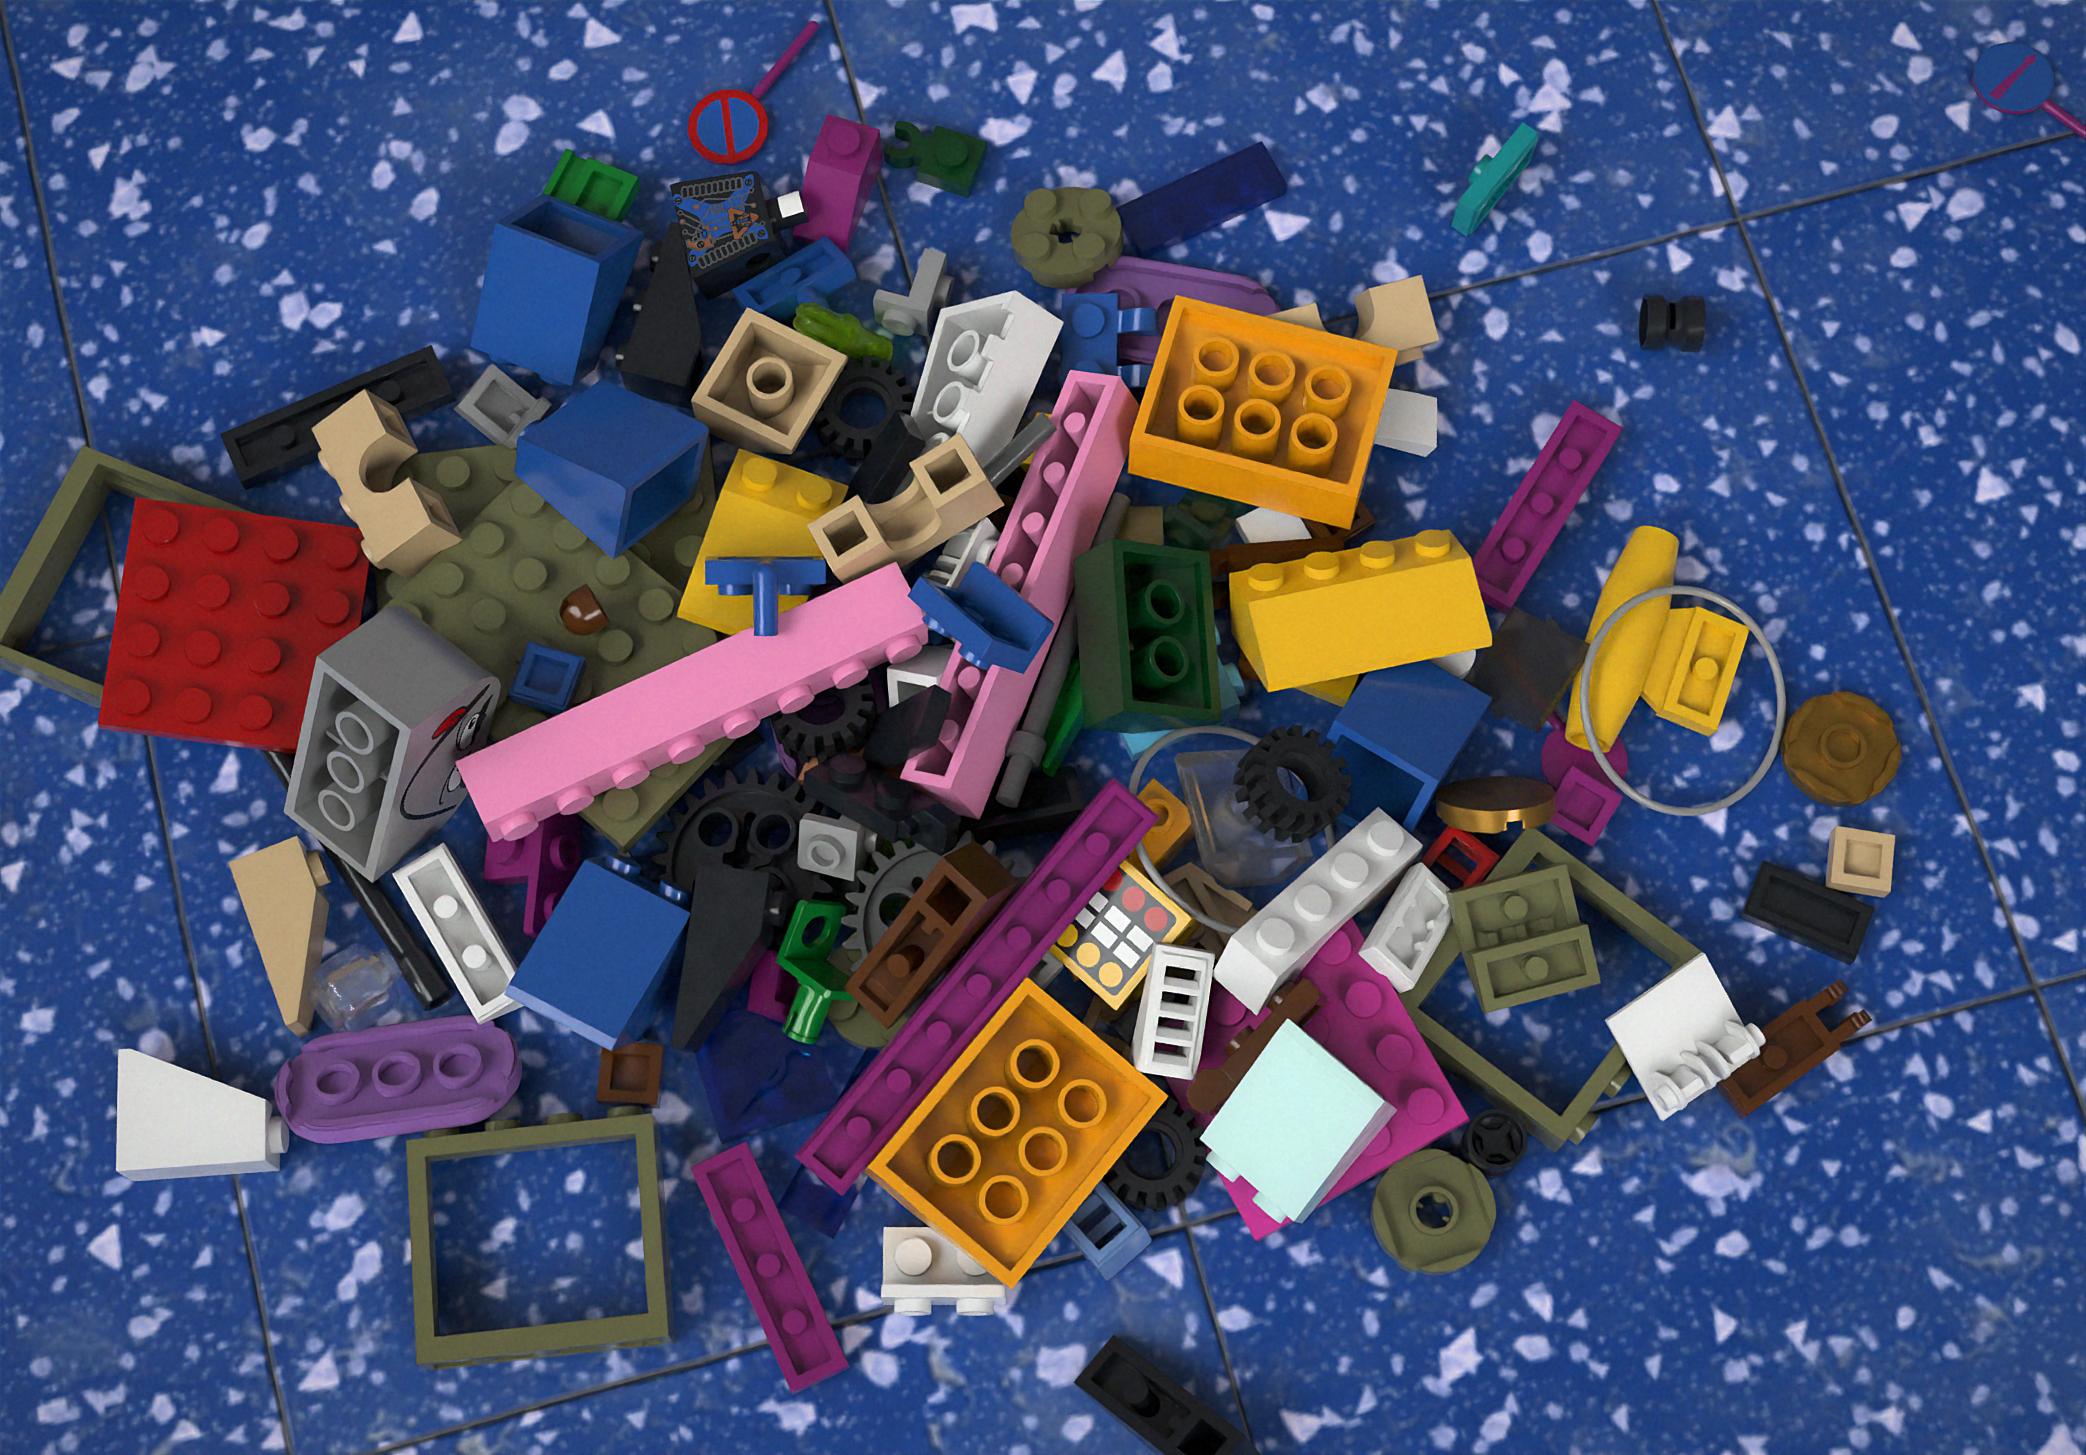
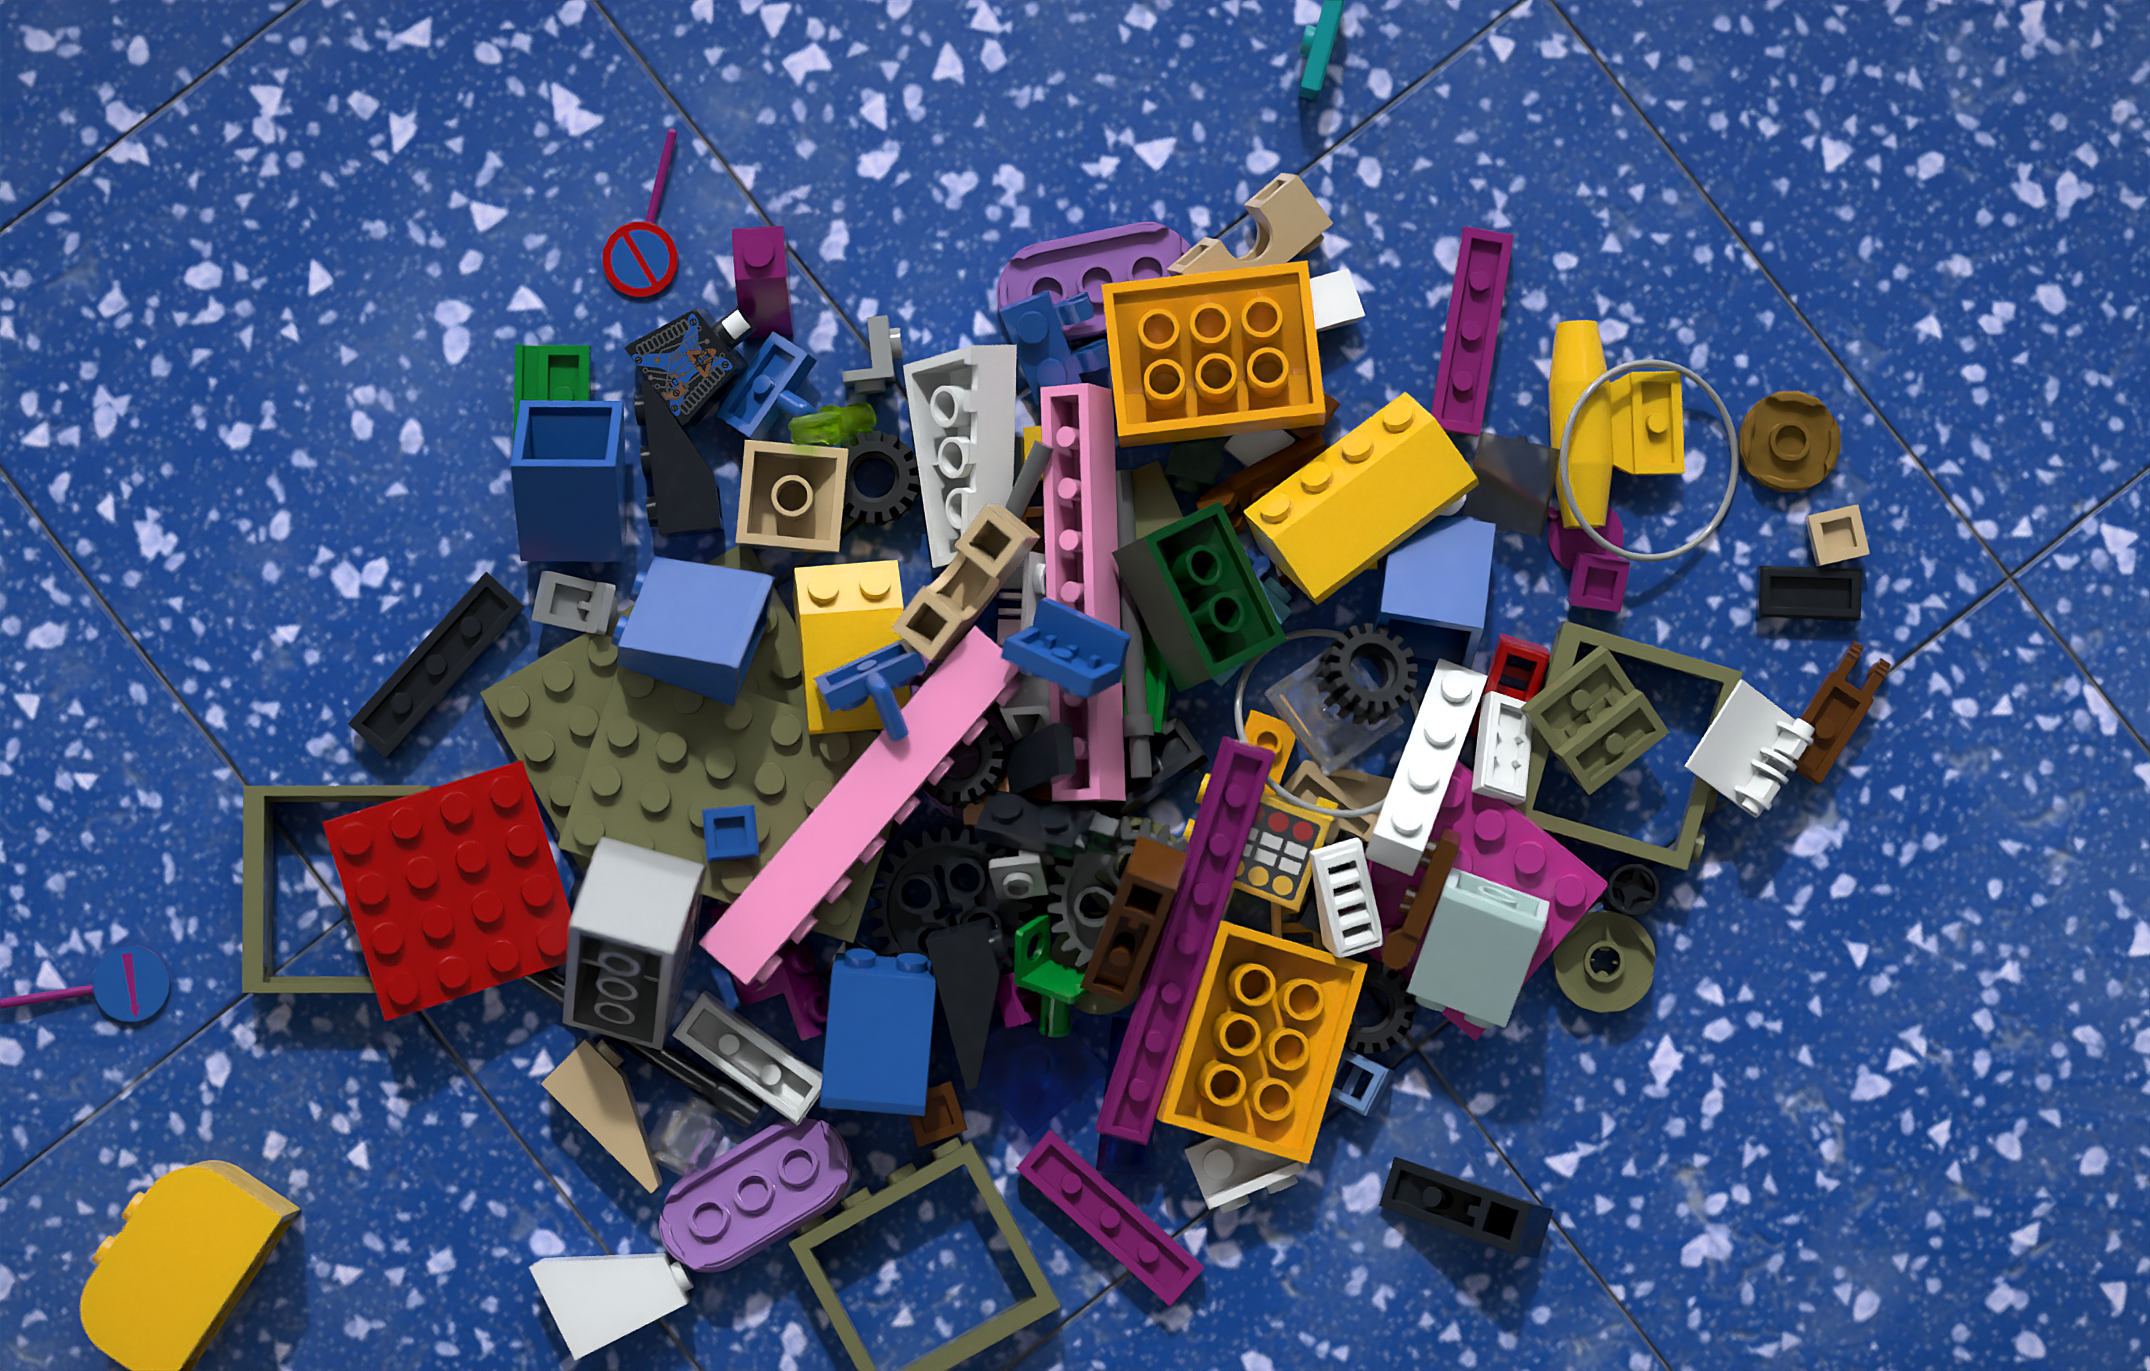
camera: 25 degrees left, 15 degrees up
(362, 451) = (479, 697): tan arch -> none
(583, 612) = (734, 766): reddish brown hinge -> none
(888, 460) = (918, 533): black tile -> none
(943, 161) = (843, 214): dark green plate -> none
(1059, 211) = (954, 231): olive plate -> none
(1201, 200) = (1077, 163): clear blue tile -> none
(1491, 802) = (1530, 612): pearl gold tile -> none
(1672, 323) = (1520, 119): black wheel -> none

